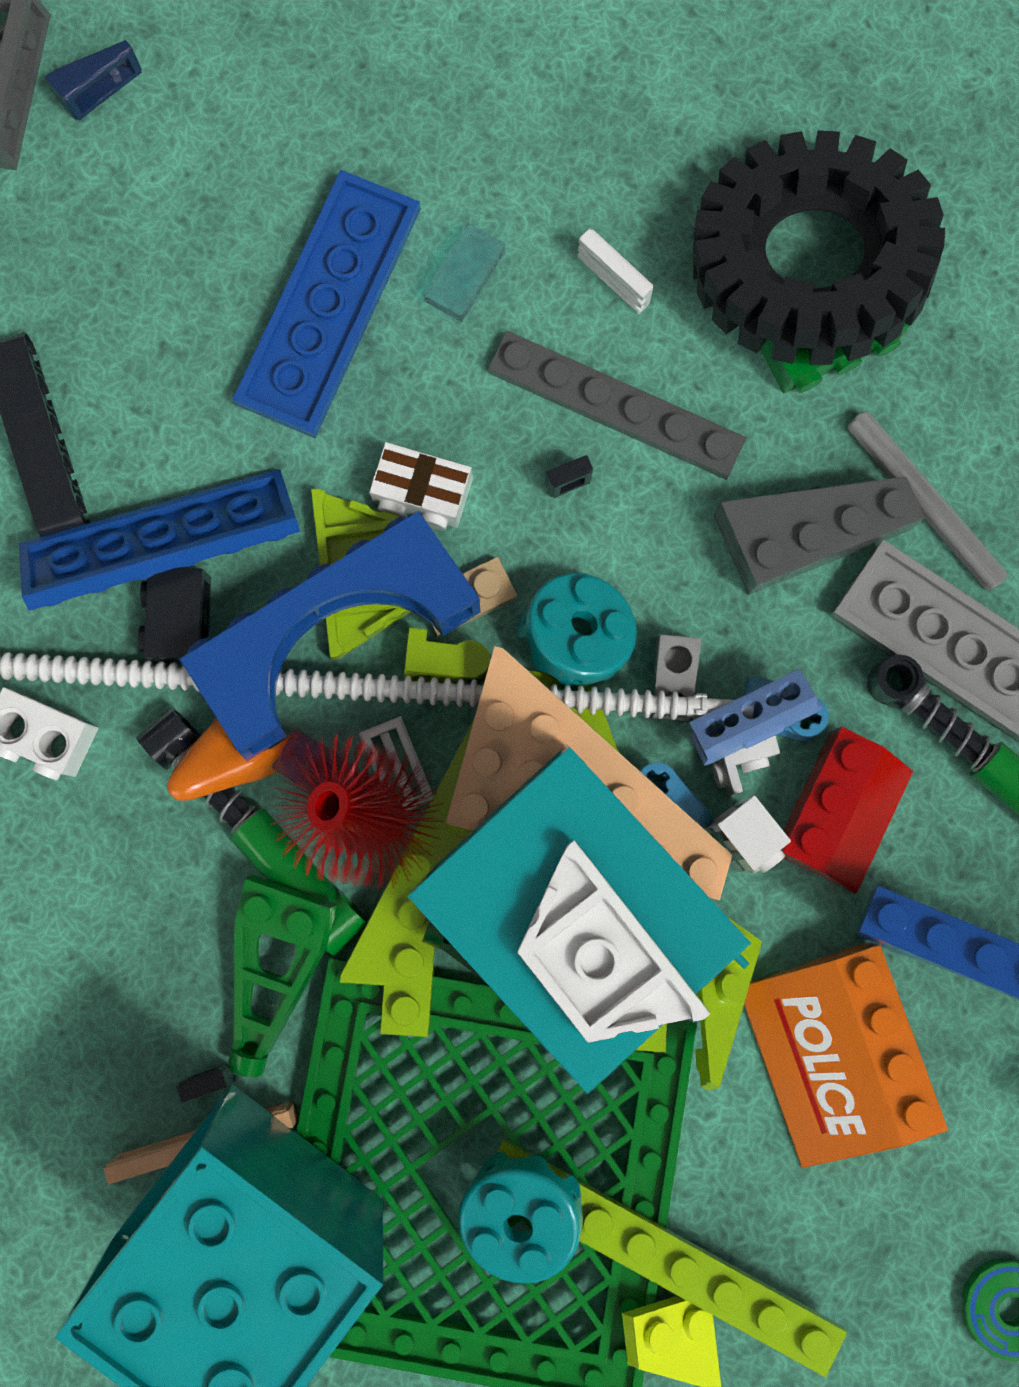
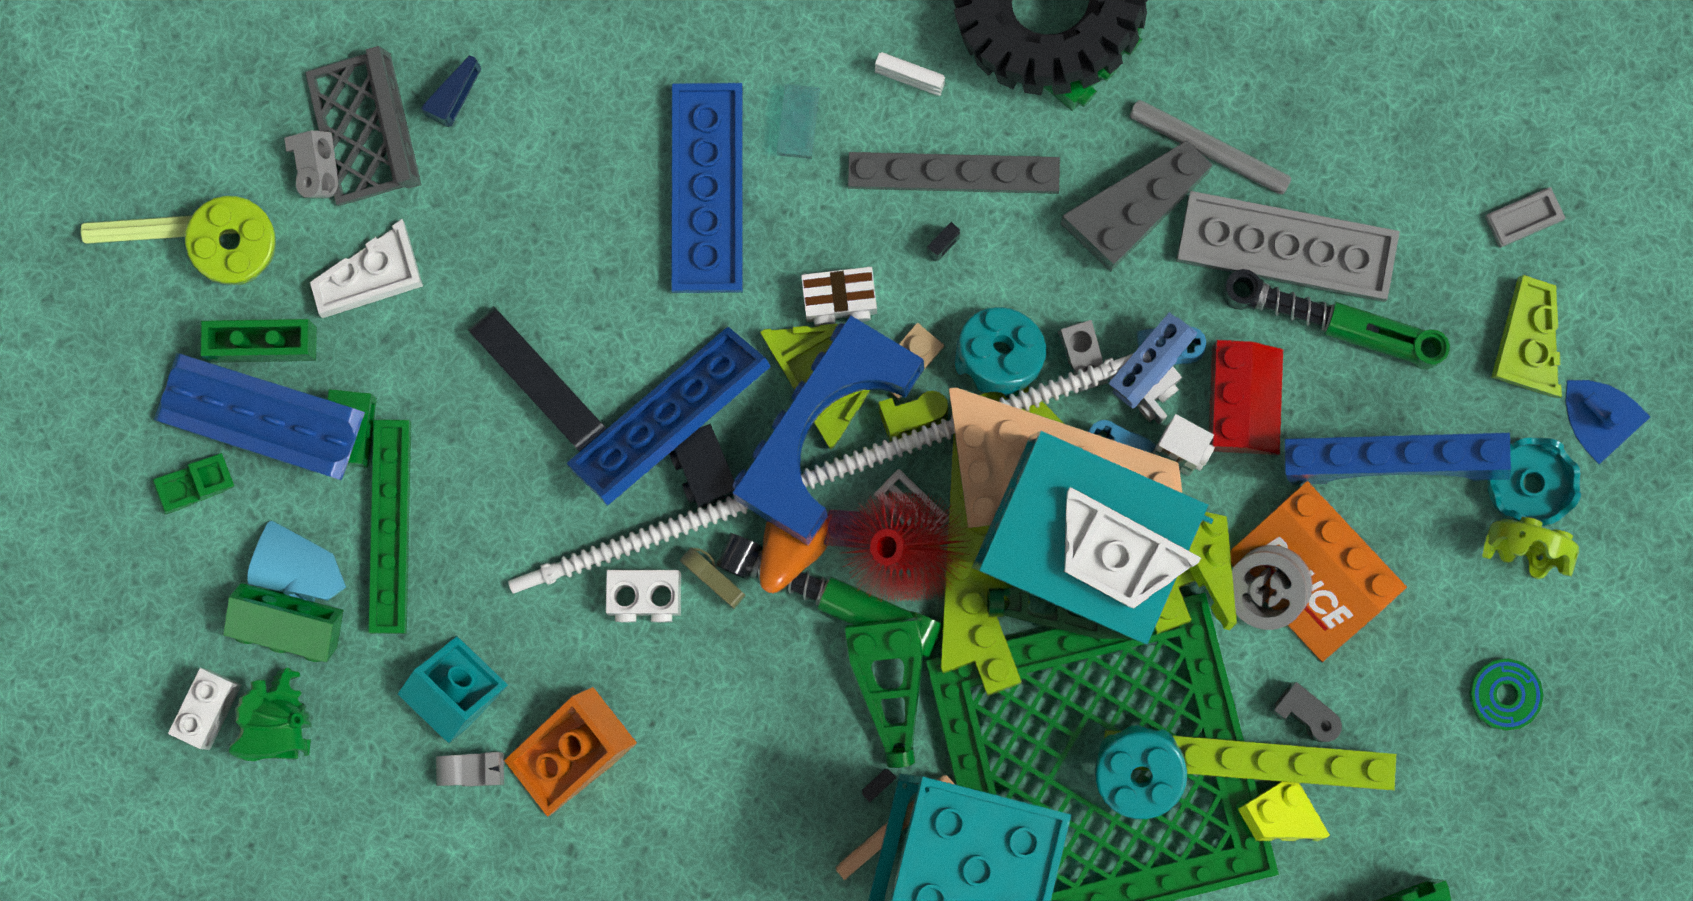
camera: 20 degrees left, 0 degrees up
(125, 749) = (712, 577): none -> olive piece
(755, 1047) = (1252, 593): none -> light grey wheel
(767, 1238) = (1319, 720): none -> dark grey leg

